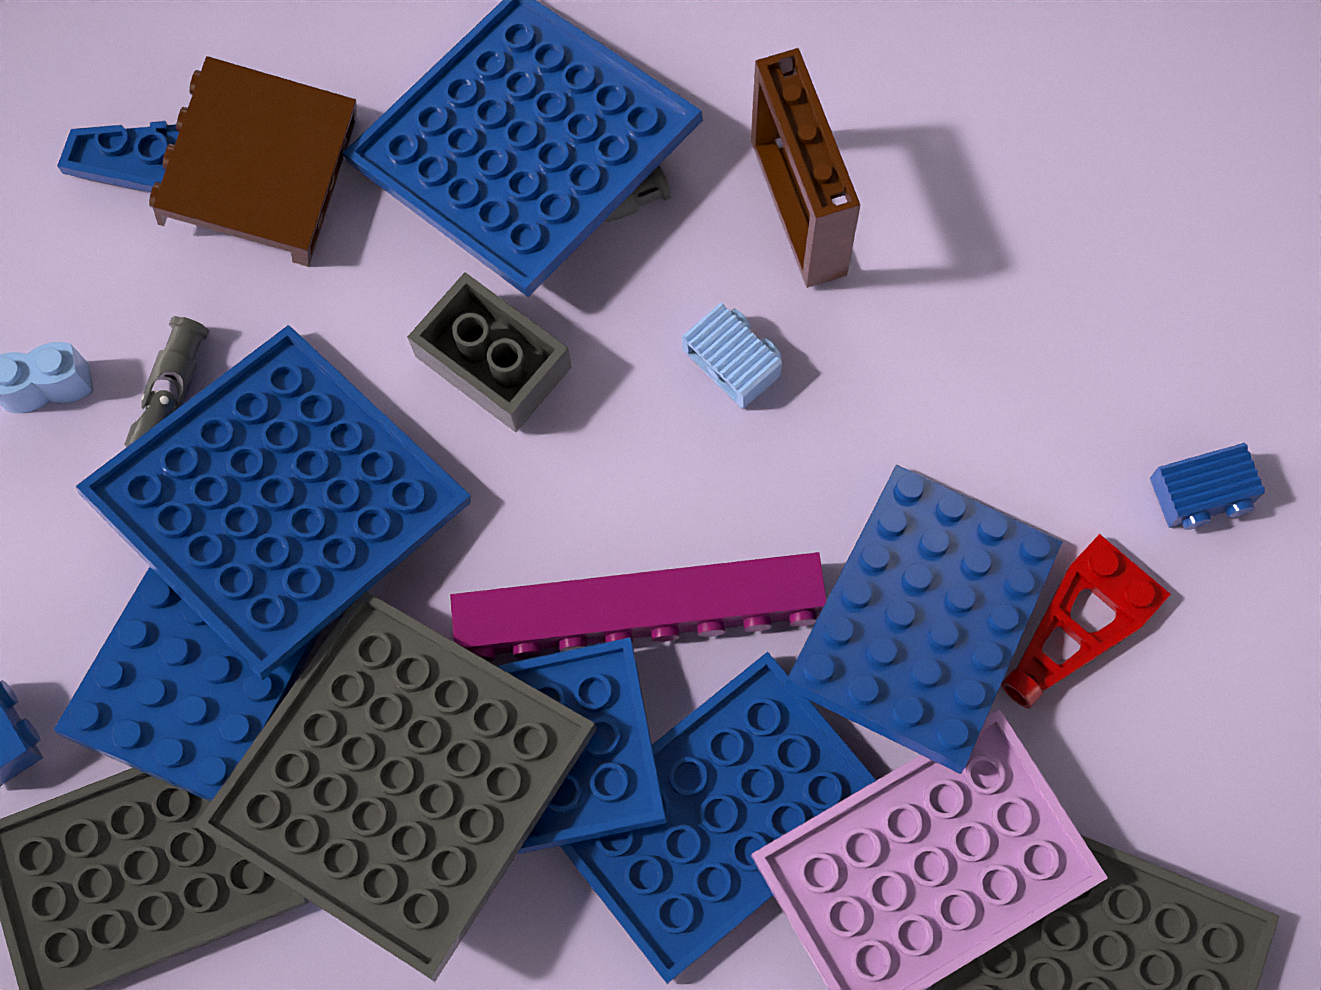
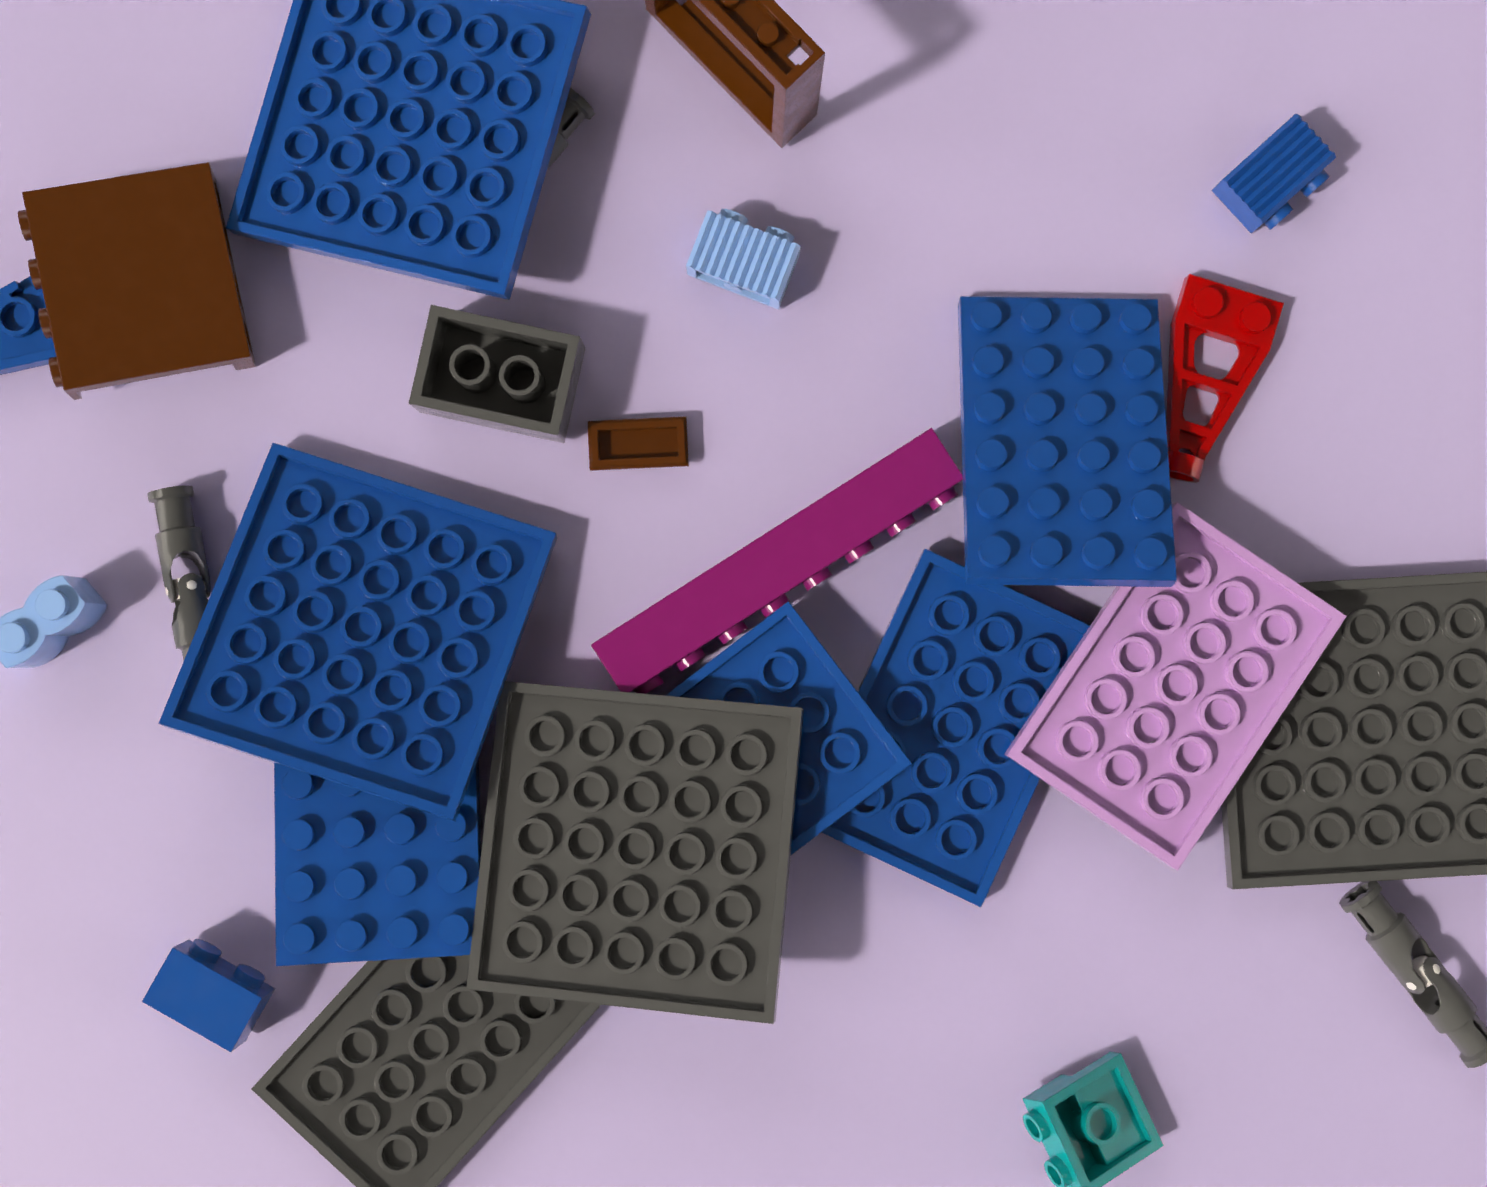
camera: 30 degrees left, 15 degrees up
(574, 459) = (638, 443): none -> reddish brown tile

